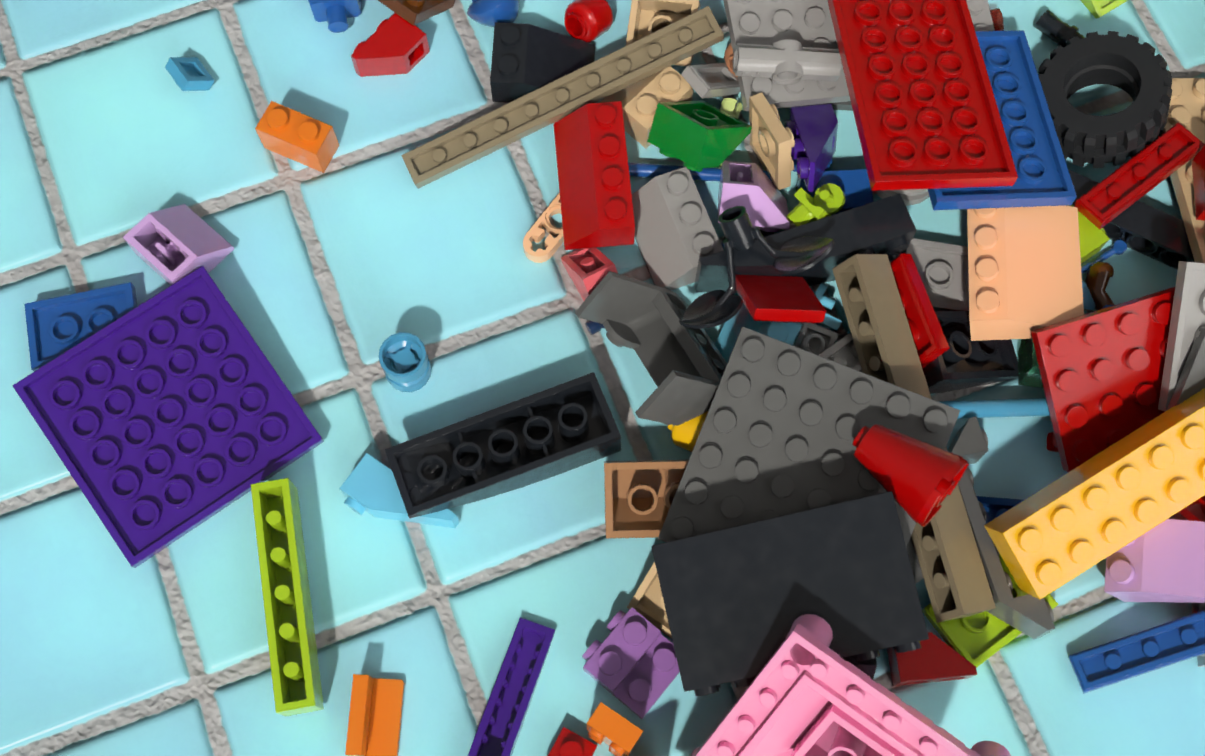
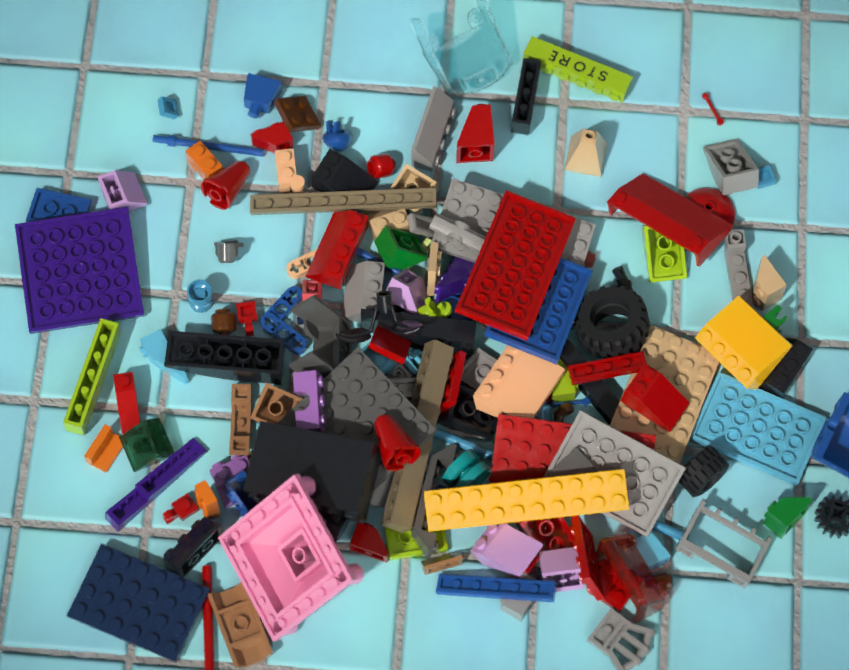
camera: 25 degrees right, 5 degrees down
(224, 125) = (171, 140): none -> blue bar
(351, 157) = (226, 184): none -> red cone
(374, 614) = (126, 400): none -> red slope
(411, 265) = (227, 251): none -> dark grey piece
(443, 91) = (287, 172): none -> light nougat hinge
(446, 673) = (146, 444): none -> clear green slope
(468, 389) = (223, 322): none -> reddish brown head
(500, 357) = (247, 314): none -> red plate
(555, 339) = (278, 319): none -> blue beam
(588, 549) = (240, 419): none -> medium nougat slope
(659, 685) = (236, 494): none -> blue bracket
(696, 433) = (310, 384): none -> medium lavender arch
(1023, 458) = (466, 471): none -> teal wheel
(1070, 623) = (442, 562): none -> medium nougat slope

